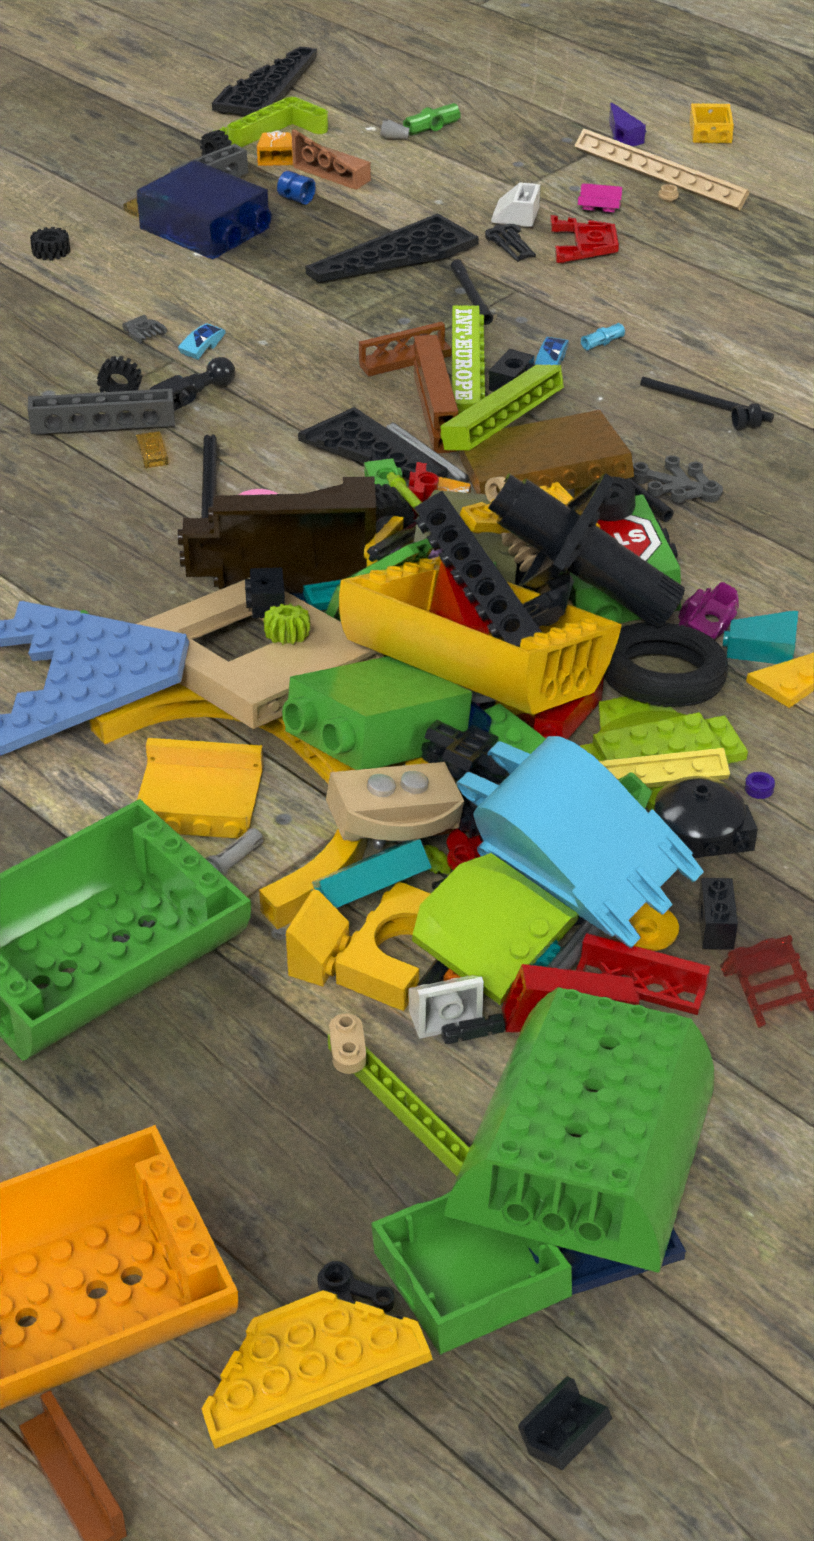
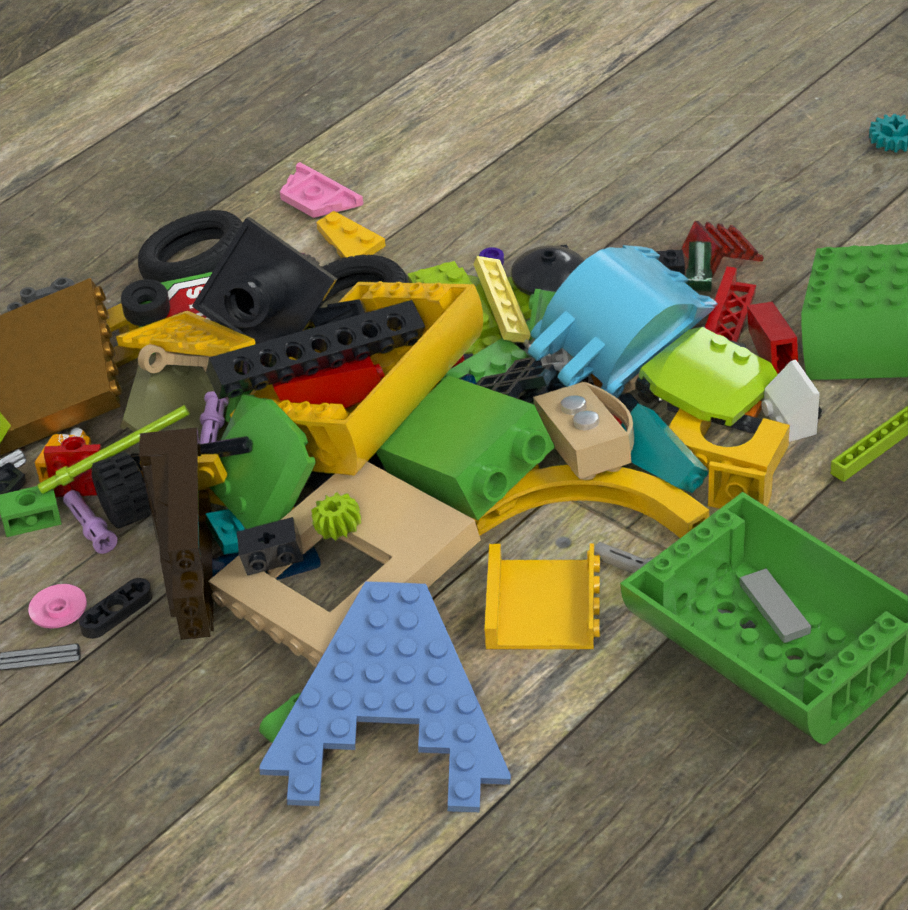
camera: 90 degrees left, 0 degrees up
(122, 947) = (775, 605): none -> light grey tile
(347, 1037) = (855, 452): tan plate -> none
(712, 945) = (699, 266): none -> clear green piece
(762, 638) = (305, 238): teal slope -> none
(783, 552) = (181, 234): none -> black tyre

